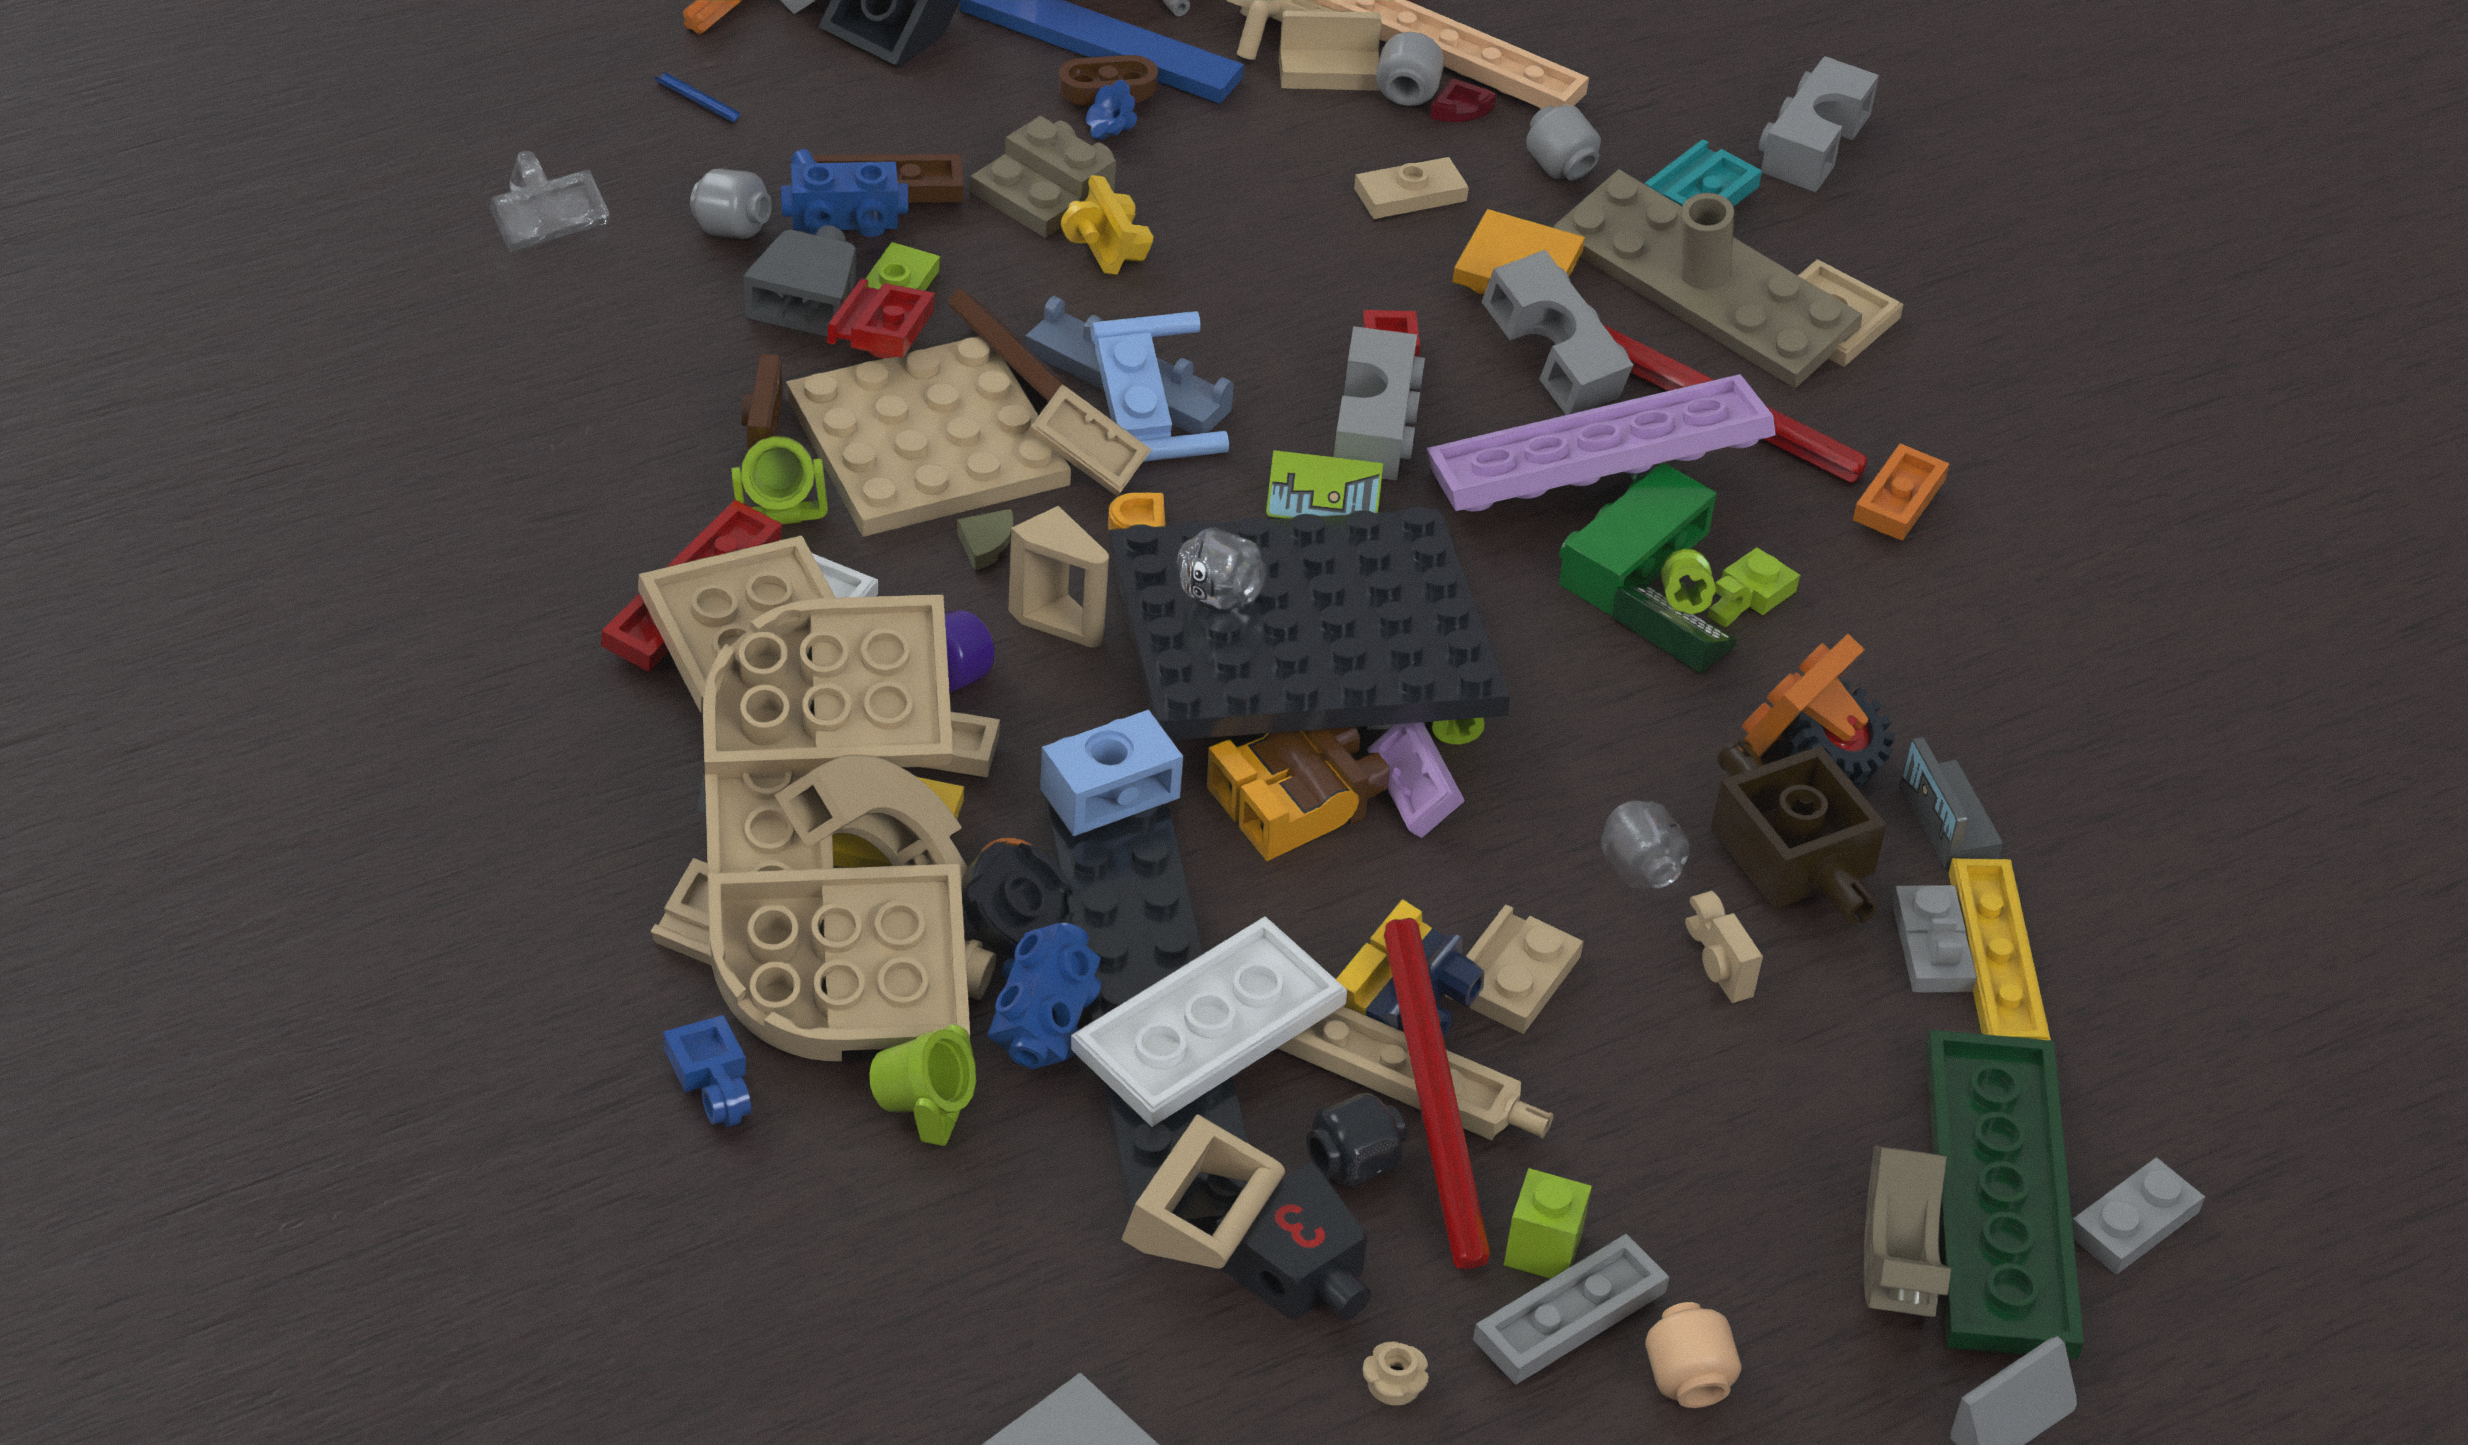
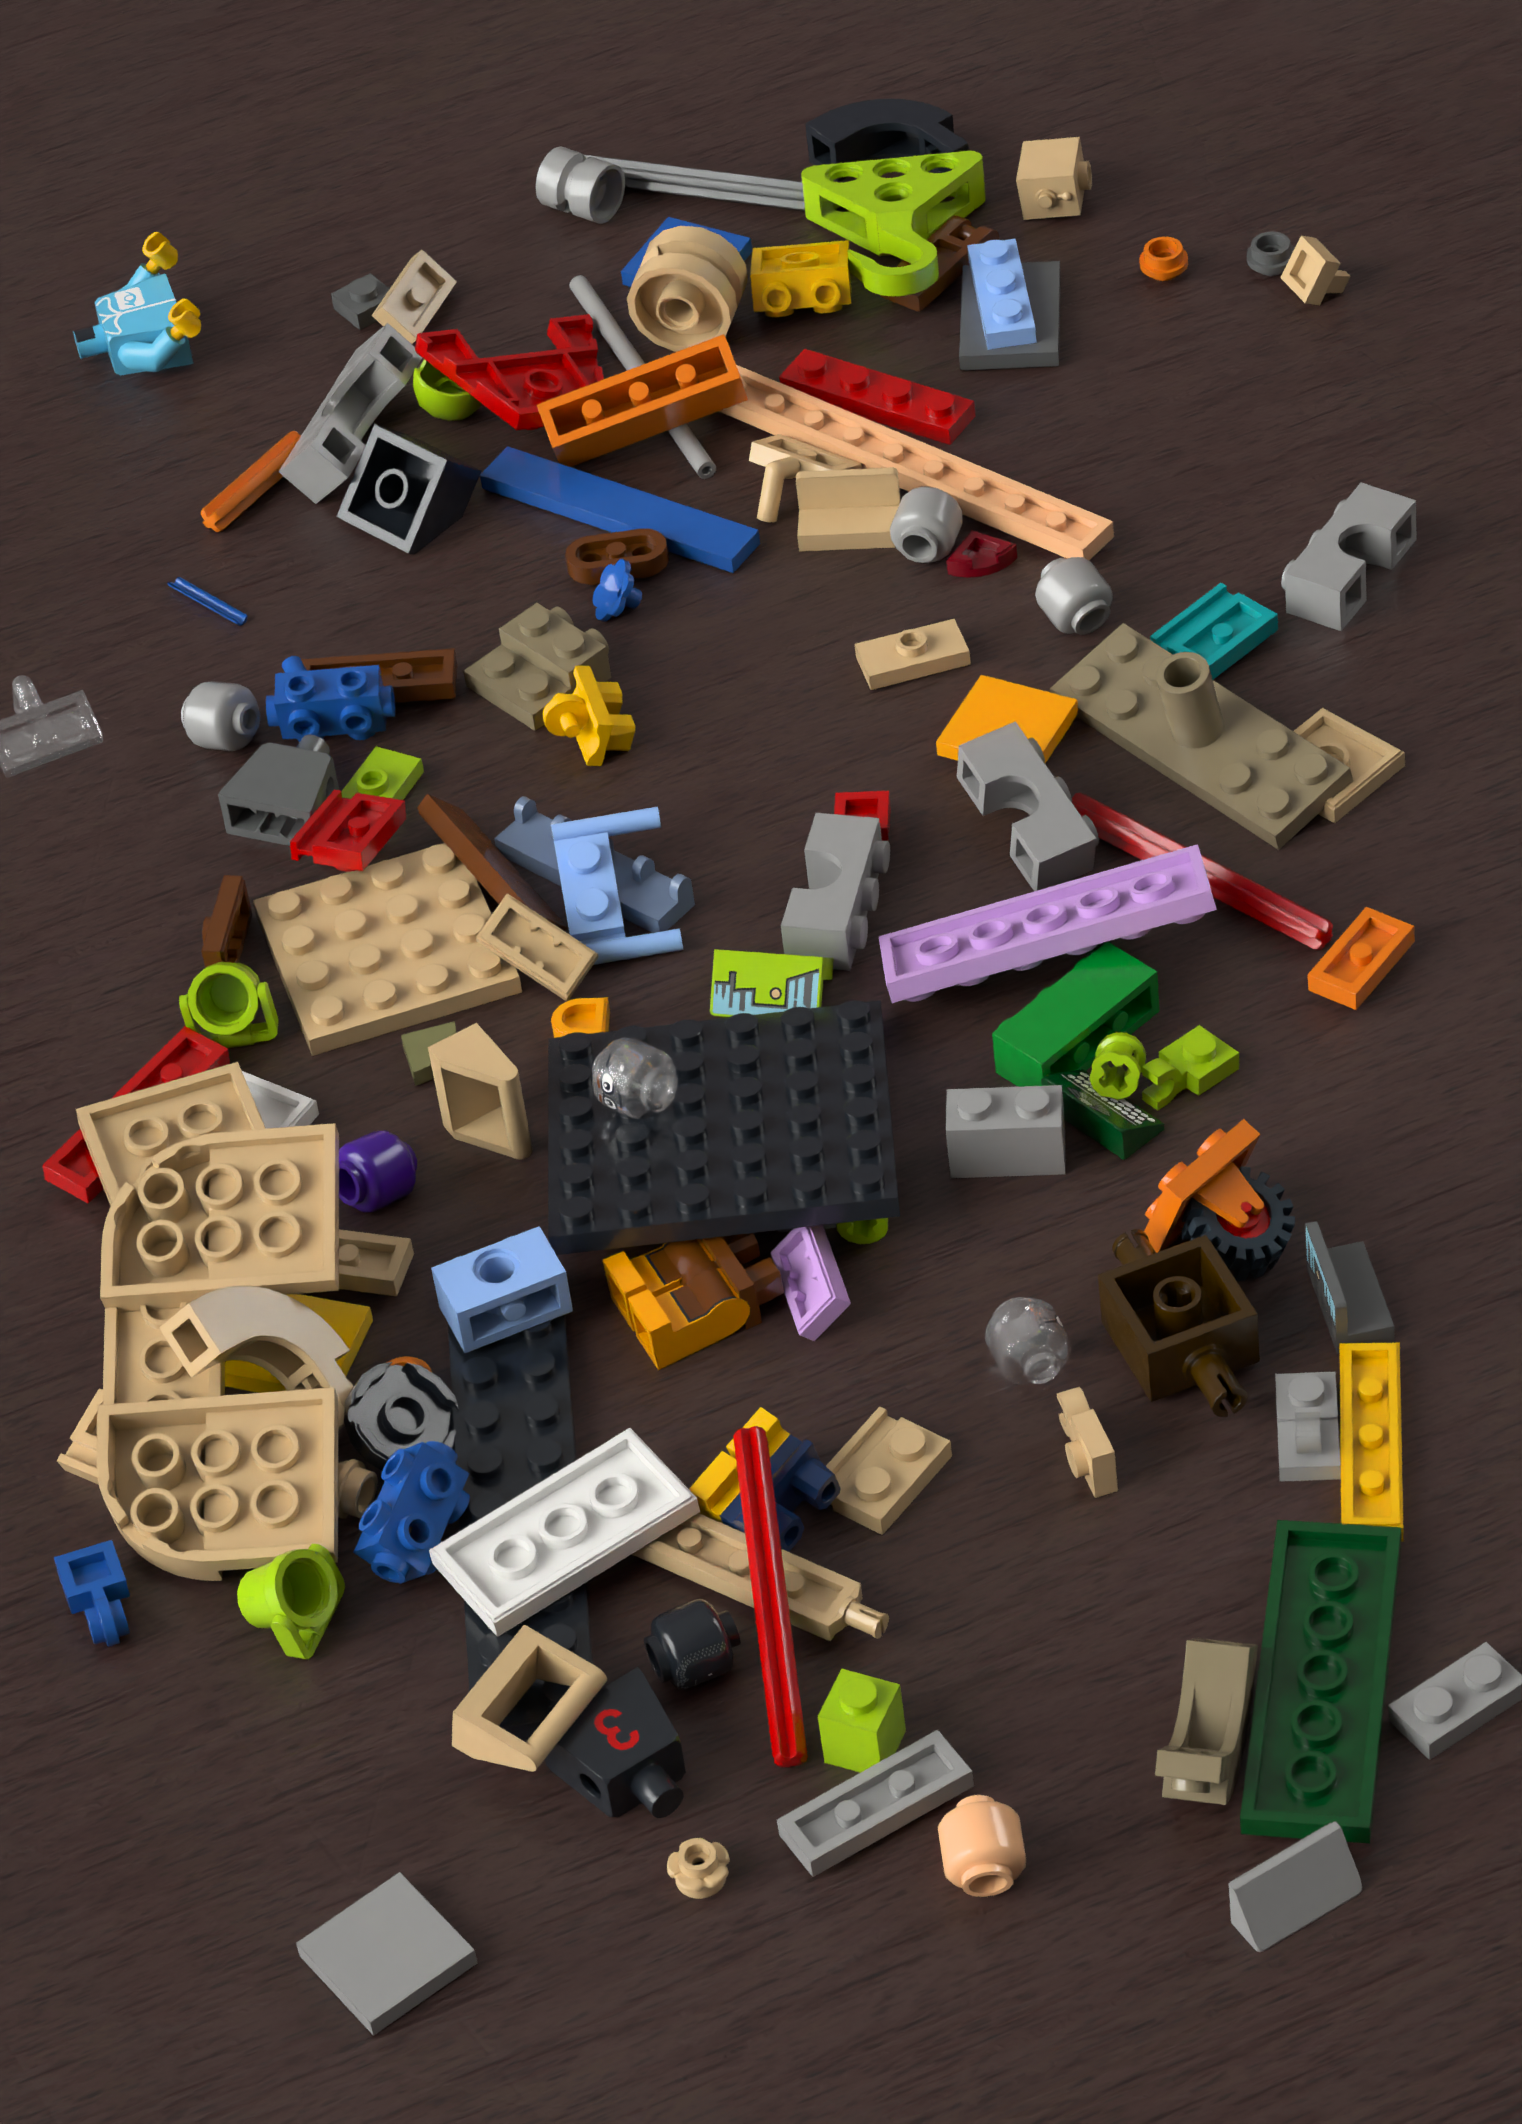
camera: 15 degrees right, 0 degrees up
(1589, 639) = (1005, 1131): none -> light grey brick

